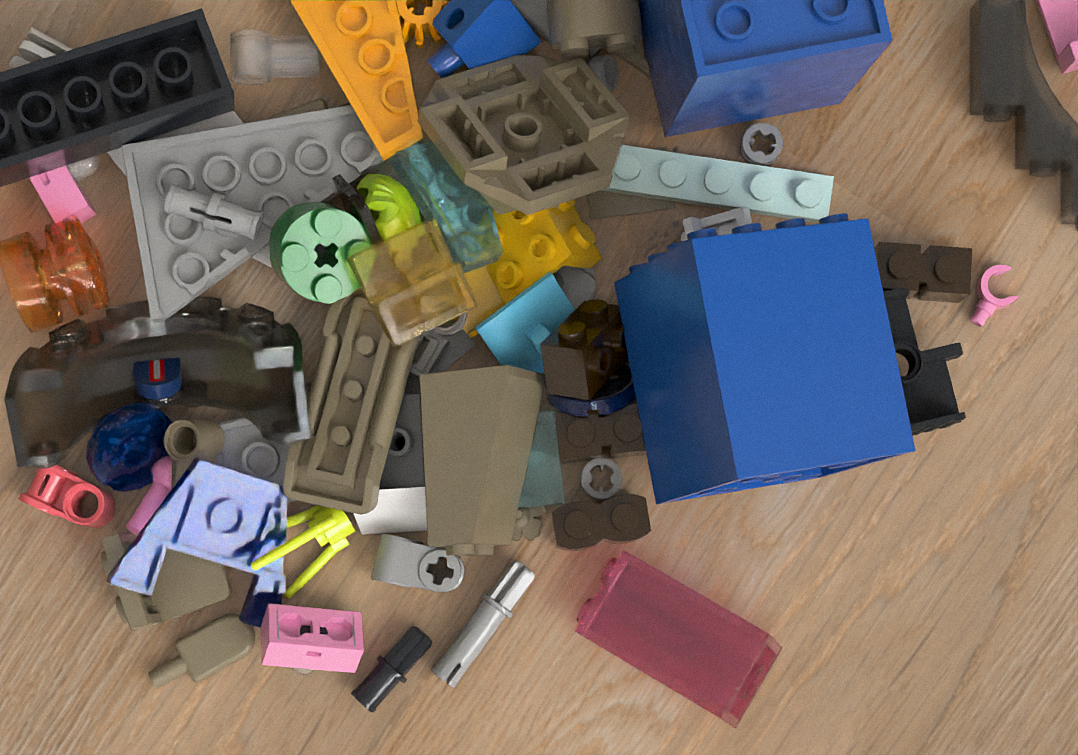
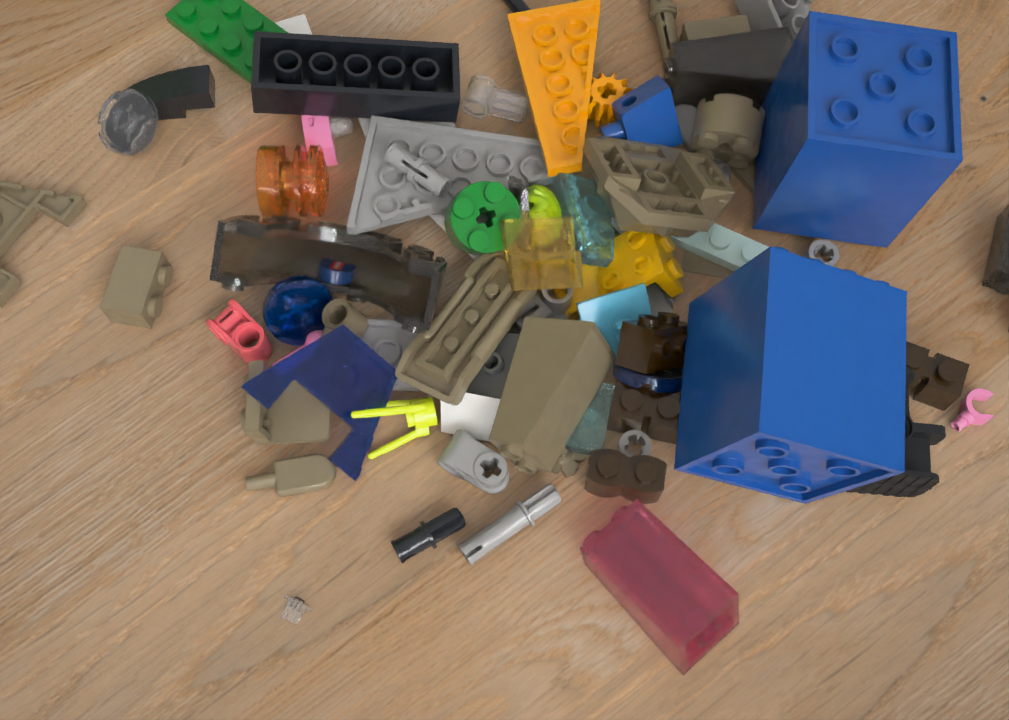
camera: 20 degrees right, 15 degrees down
(311, 638) = (375, 488): bright pink piece -> none

